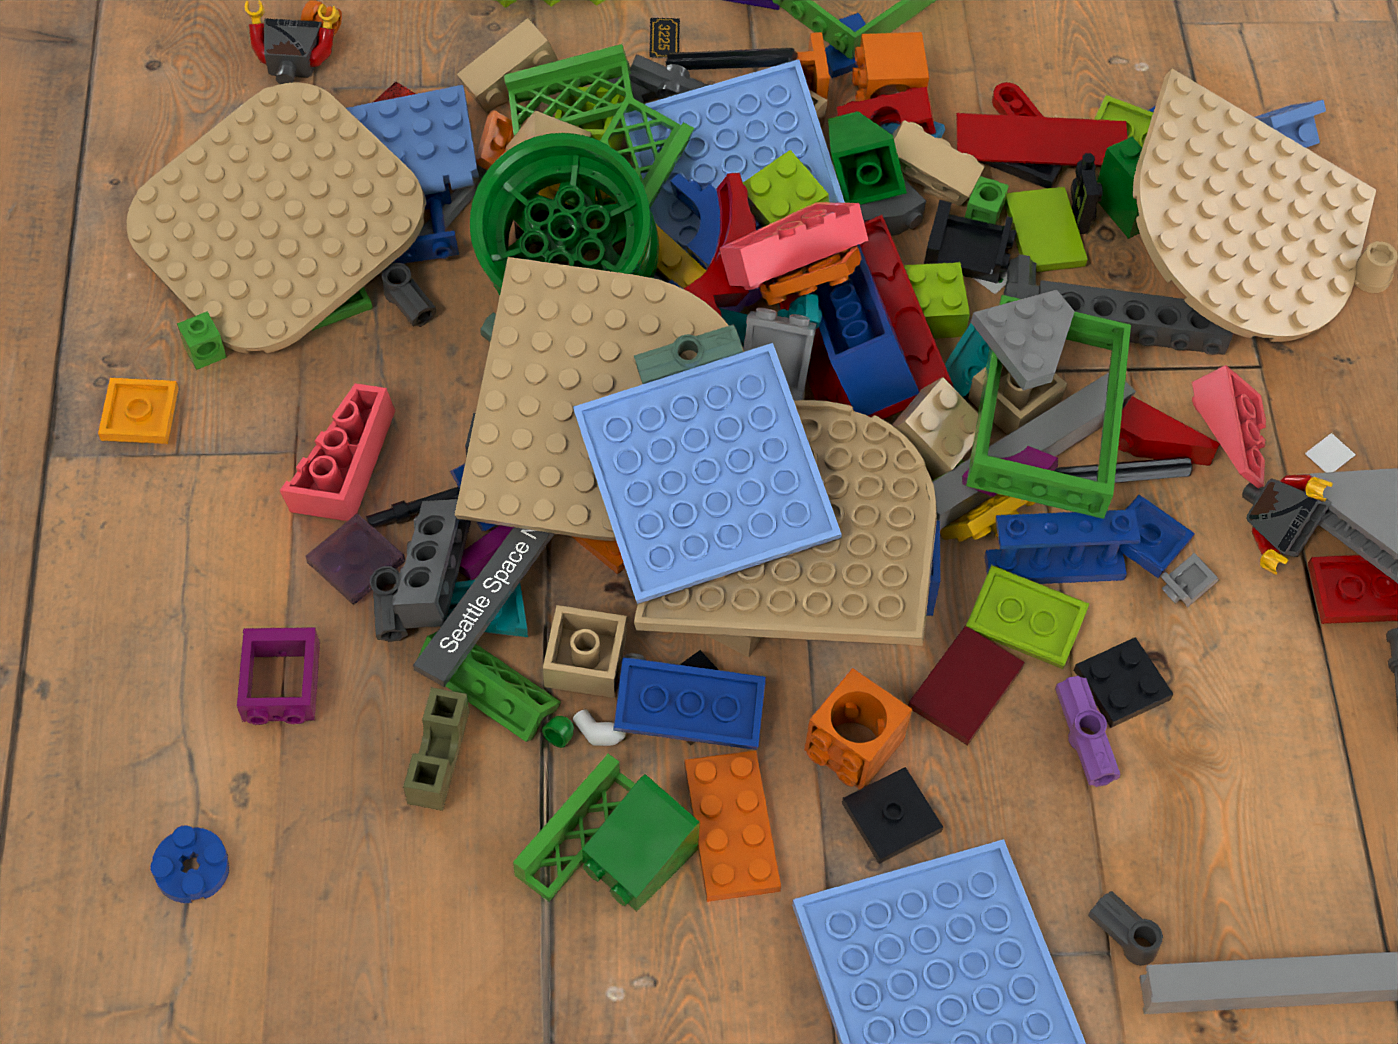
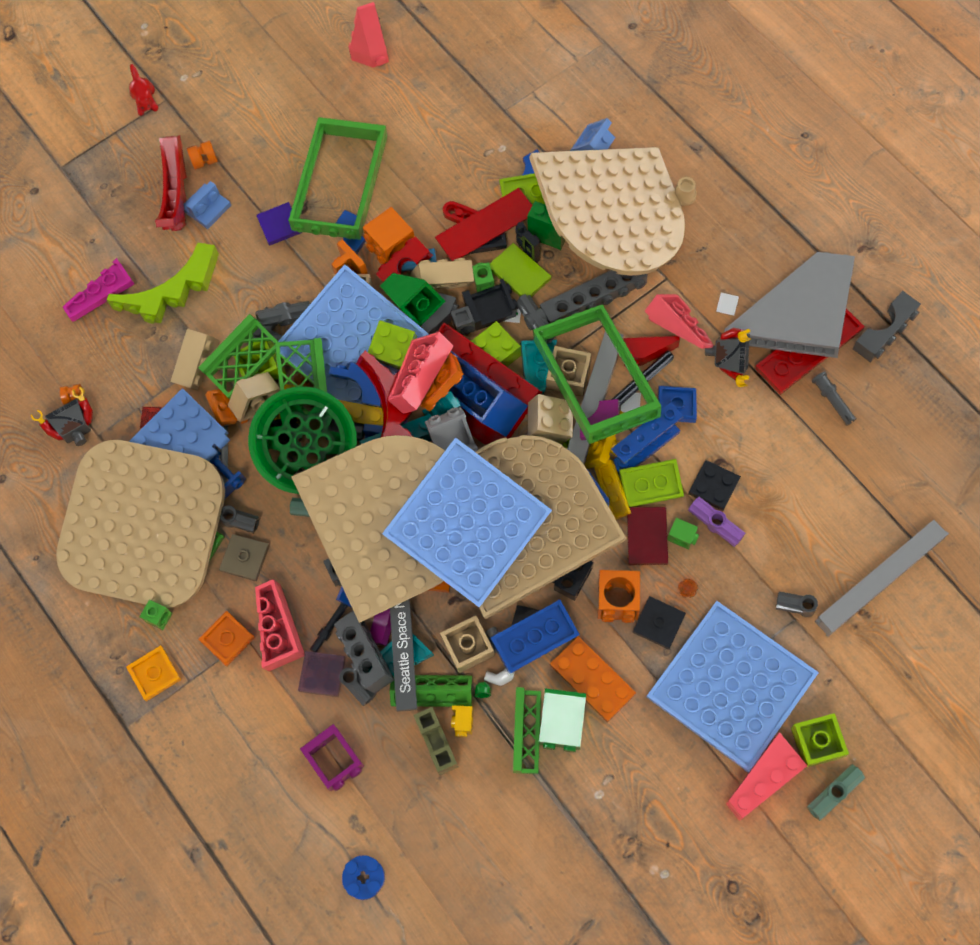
camera: 25 degrees left, 10 degrees up
(268, 431) = (226, 638): none -> orange plate
(375, 348) = (244, 557): none -> dark tan plate
(498, 750) = (462, 720): none -> yellow brick
(664, 36) = (256, 287): black sticker -> none
(708, 346) = (410, 480): sand green piece -> none
(732, 58) = (304, 282): black axle -> none
(817, 671) = (578, 579): none -> black brick
(913, 237) = (463, 320): none -> dark grey brick
(960, 588) = (612, 487): none -> yellow plate
(973, 786) = (688, 583): none -> clear orange plate
(1022, 714) = (683, 533): none -> bright green brick
(1027, 335) = (562, 345): light grey plate -> none
(1188, 581) = (710, 415): light grey bracket -> none

